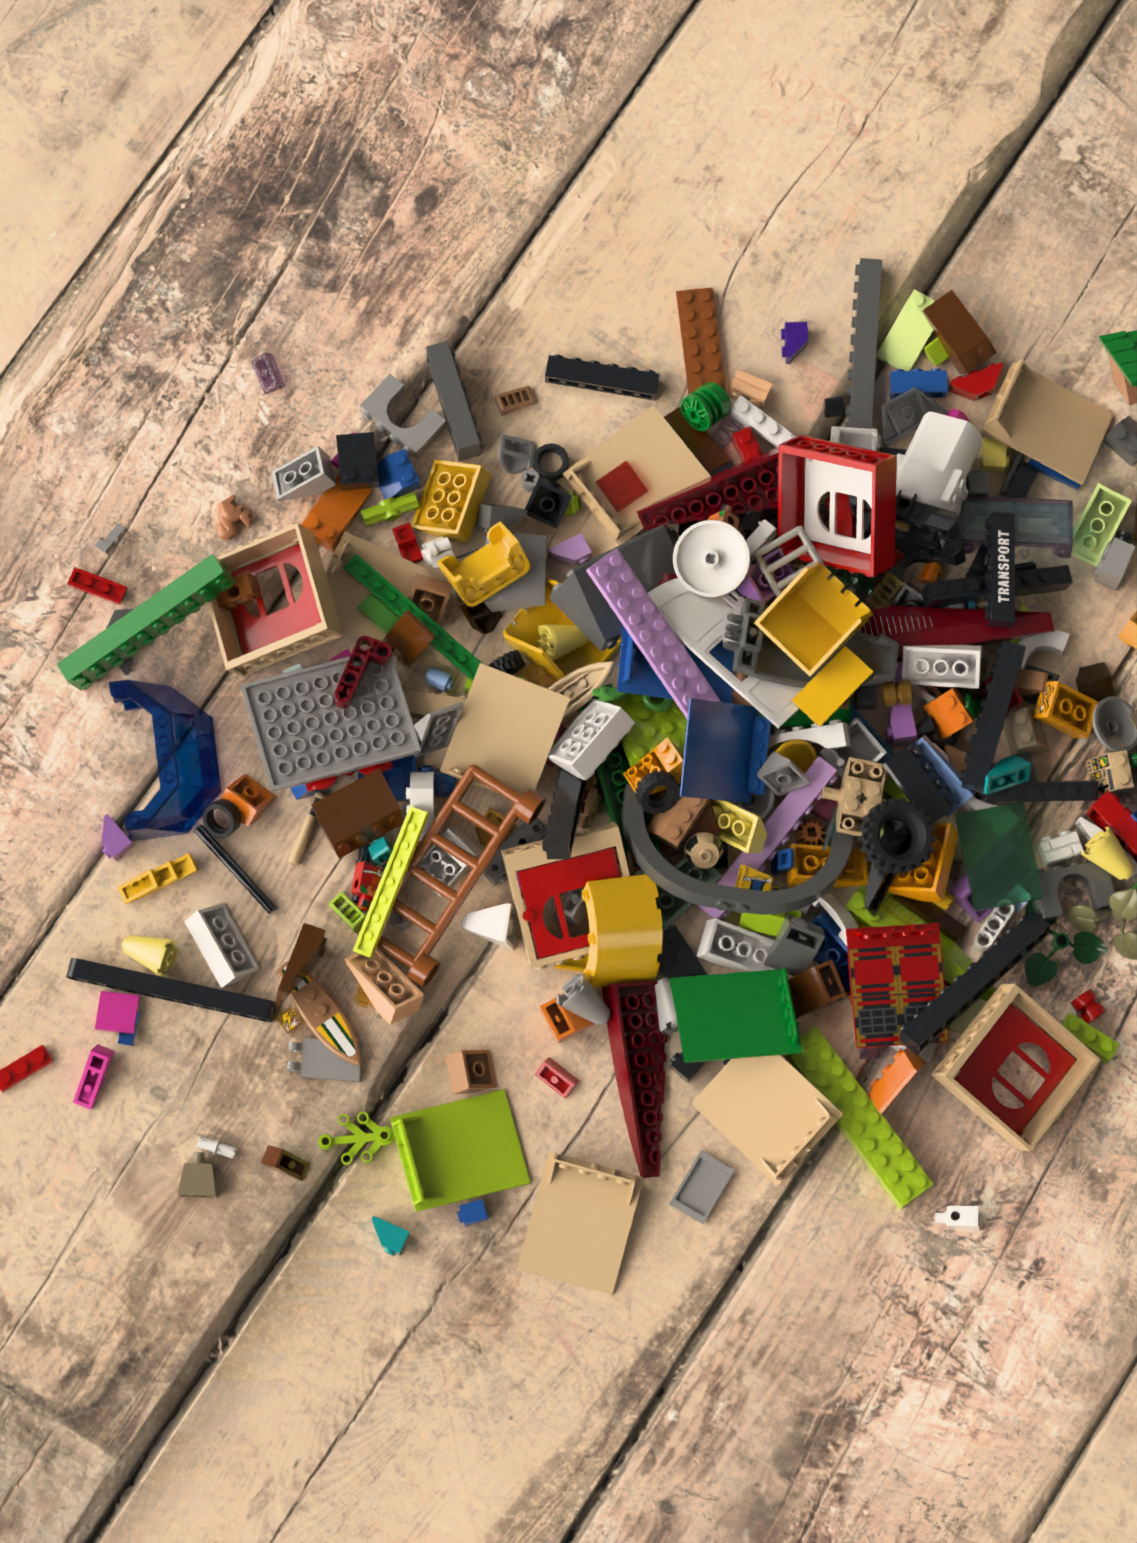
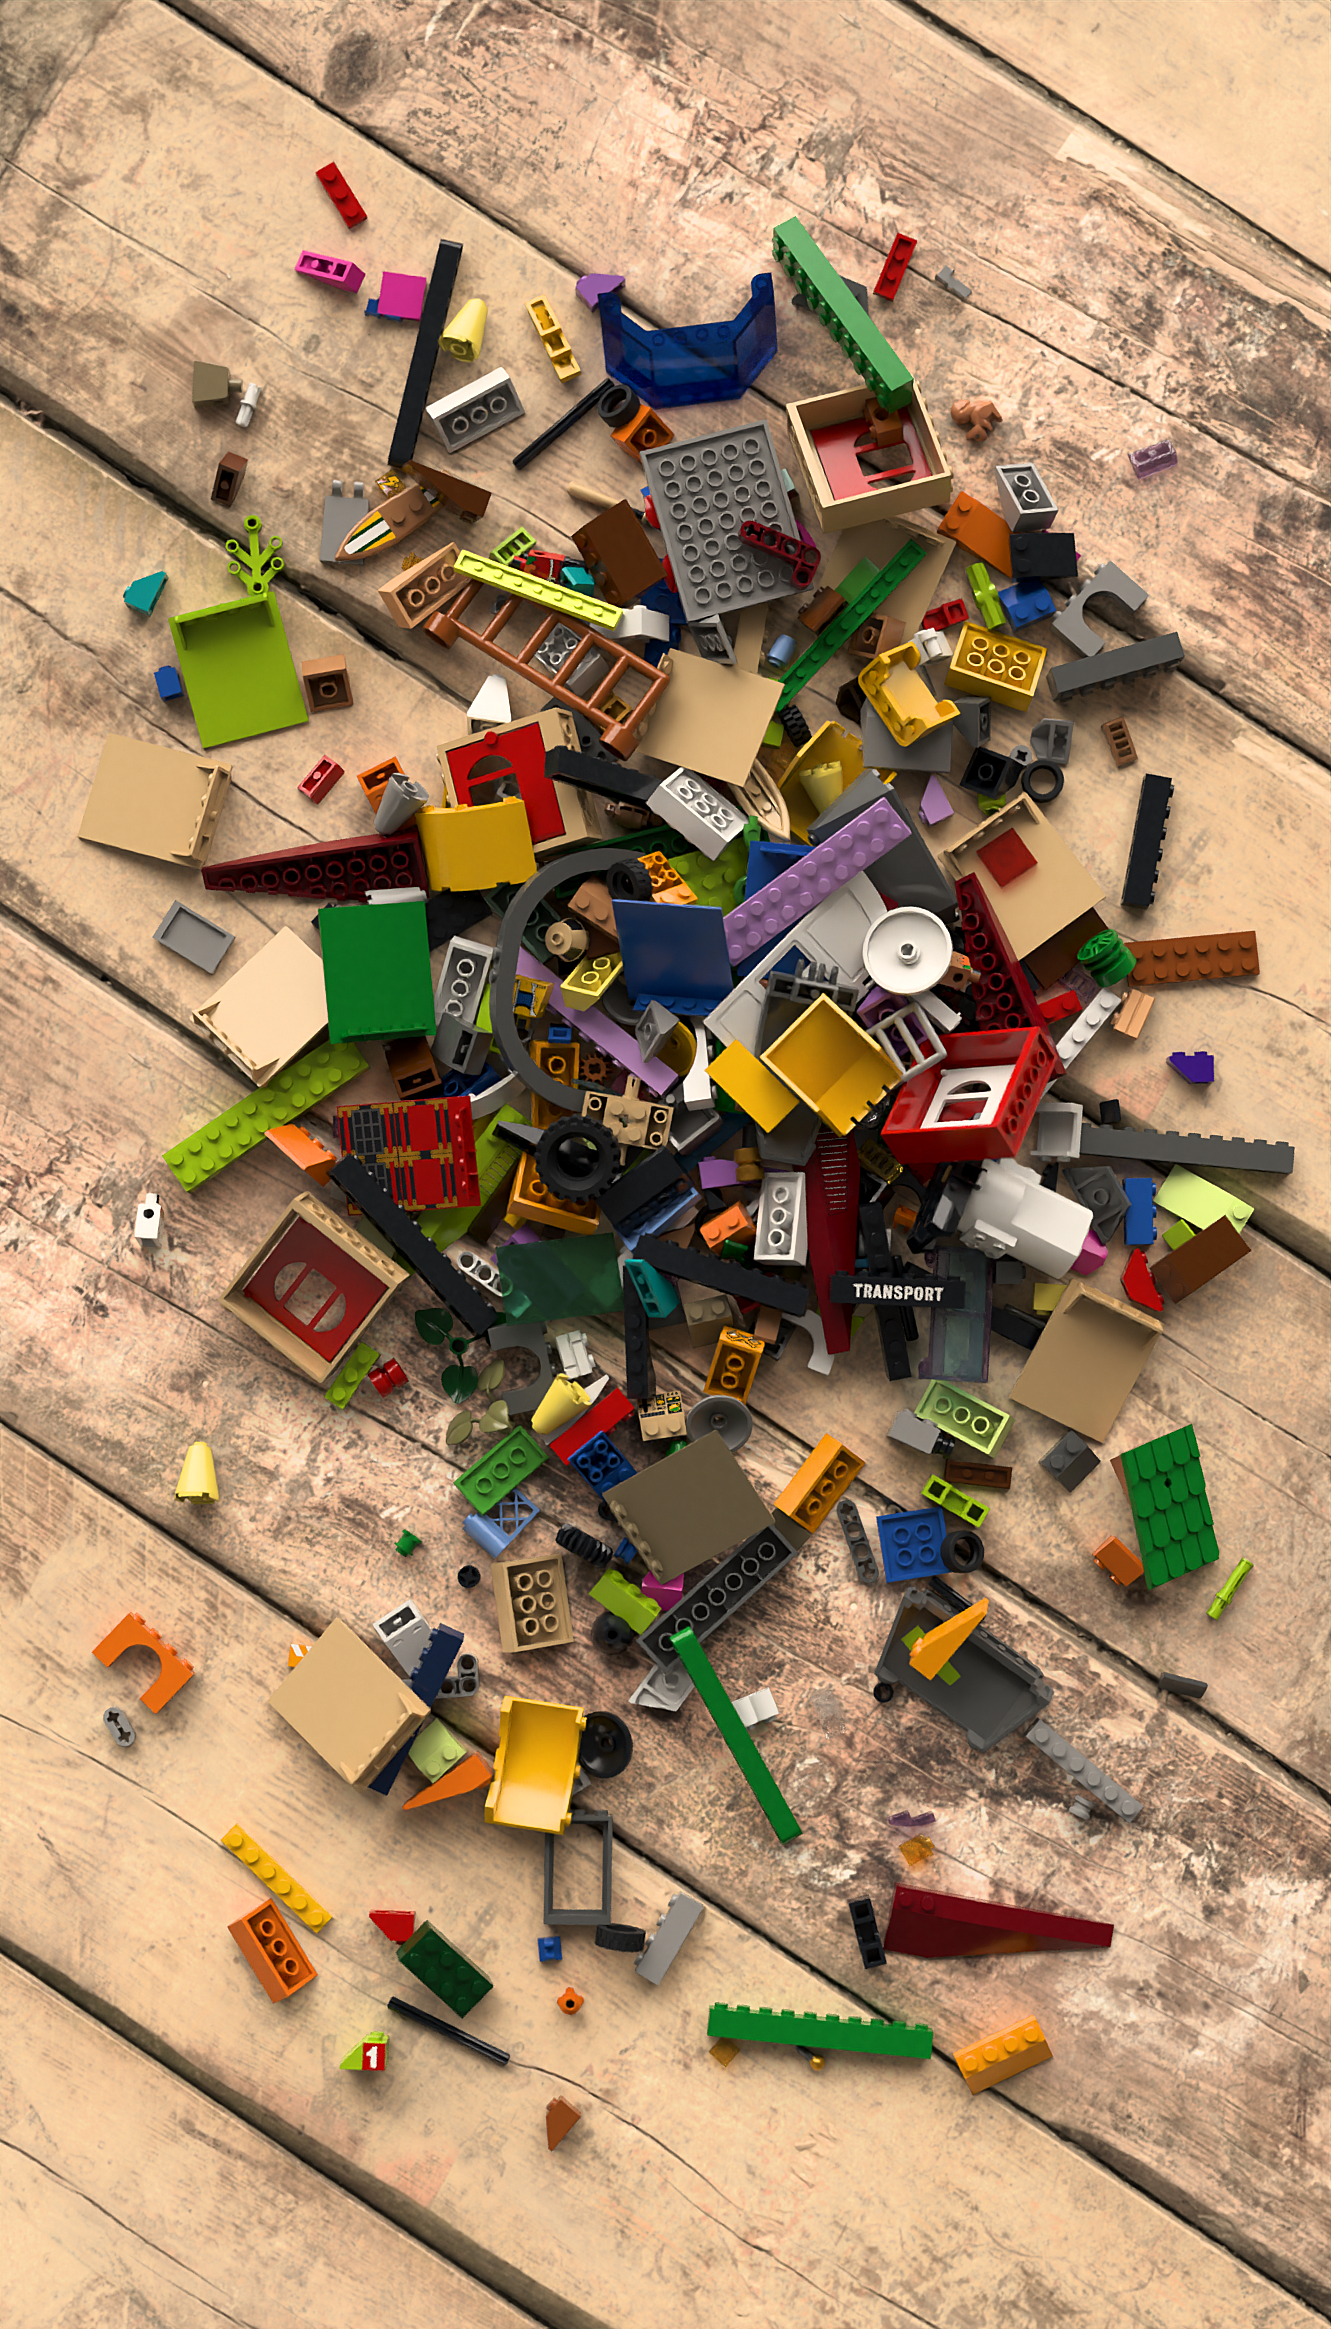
camera: 90 degrees right, 10 degrees up
(1095, 681) = (772, 1404): dark brown slope -> none

